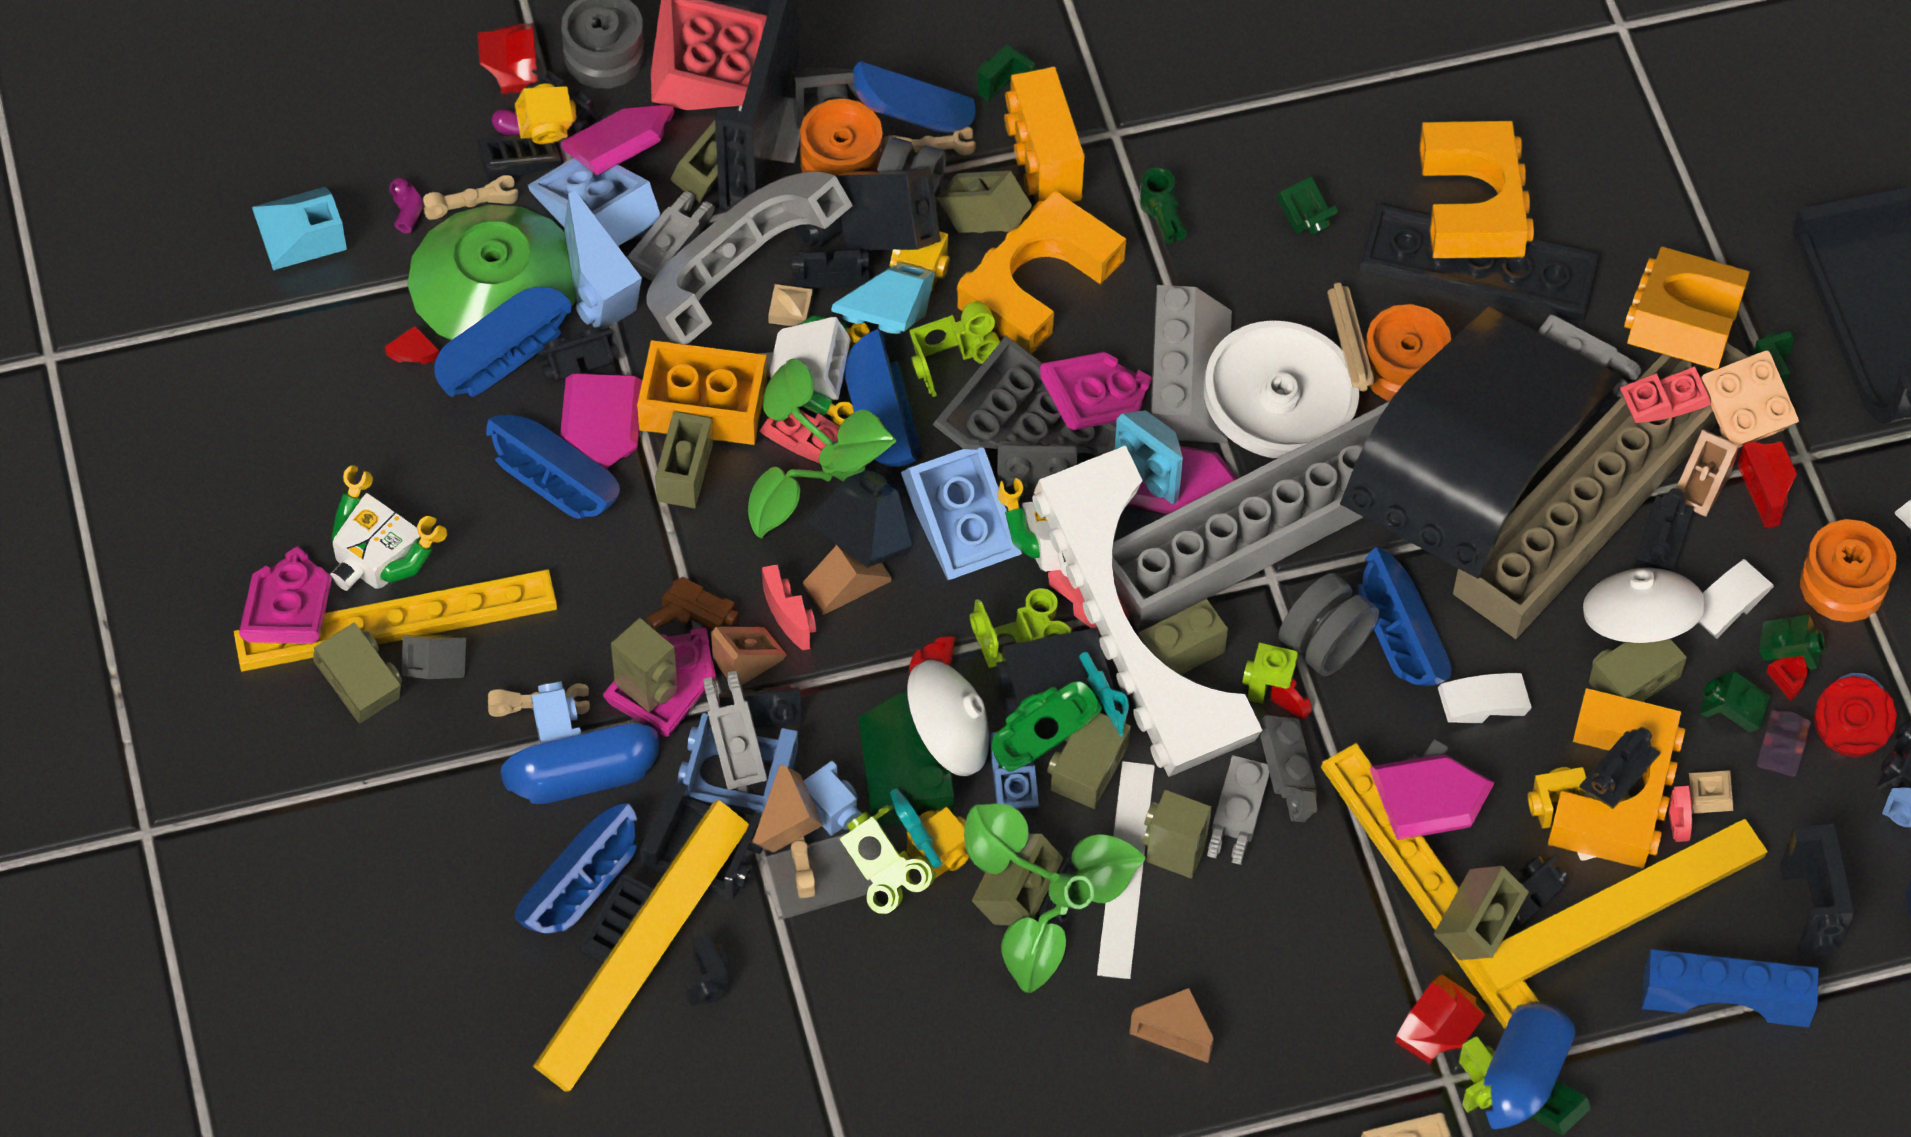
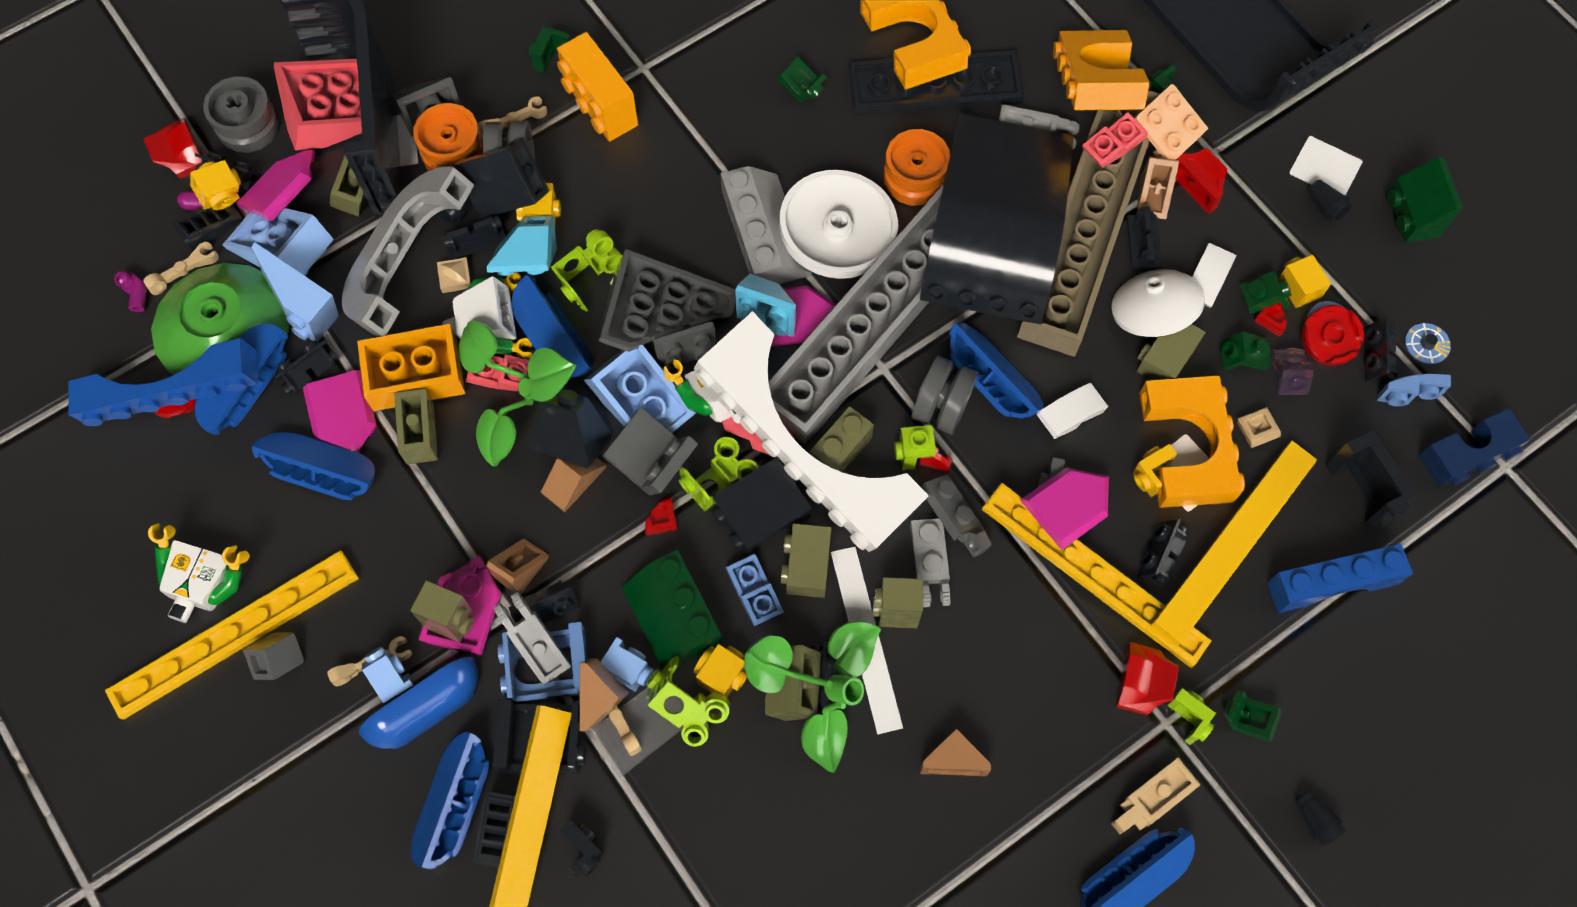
camera: 20 degrees left, 10 degrees up
(286, 601) = (139, 651): dark pink tile -> none
(300, 227) = (54, 336): medium azure slope -> none
(358, 672) = (216, 693): olive brick -> none
(485, 321) = (218, 370): none -> blue arch
(669, 235) = (343, 250): light grey hinge -> none
(690, 602) = (459, 537): reddish brown piece -> none
(788, 610) = (539, 521): coral slope -> none
(912, 99) = (488, 89): blue brick -> none
(915, 827) = (700, 671): teal hand -> none
(945, 574) = (648, 452): none -> dark grey bracket
(949, 717) = (693, 570): white dish -> none
(984, 202) = (570, 150): olive brick -> none
(1052, 230) = (627, 154): light orange arch -> none
(1070, 707) = (752, 570): green piece -> none
(1093, 389) = (703, 268): dark pink tile -> none
(1106, 695) = (805, 510): teal hand -> none
(1163, 203) = (699, 110): dark green pin -> none
(1350, 337) = (872, 167): tan axle -> none
(1481, 913) = (1149, 589): olive brick -> none
(1527, 1062) = (1231, 699): blue brick -> none
(1621, 767) = (1197, 435): black hinge -> none
(1680, 813) = (1247, 452): coral tile -> none
(1847, 570) = (1284, 227): orange wheel -> none
(1847, 642) = (1305, 280): none -> yellow brick

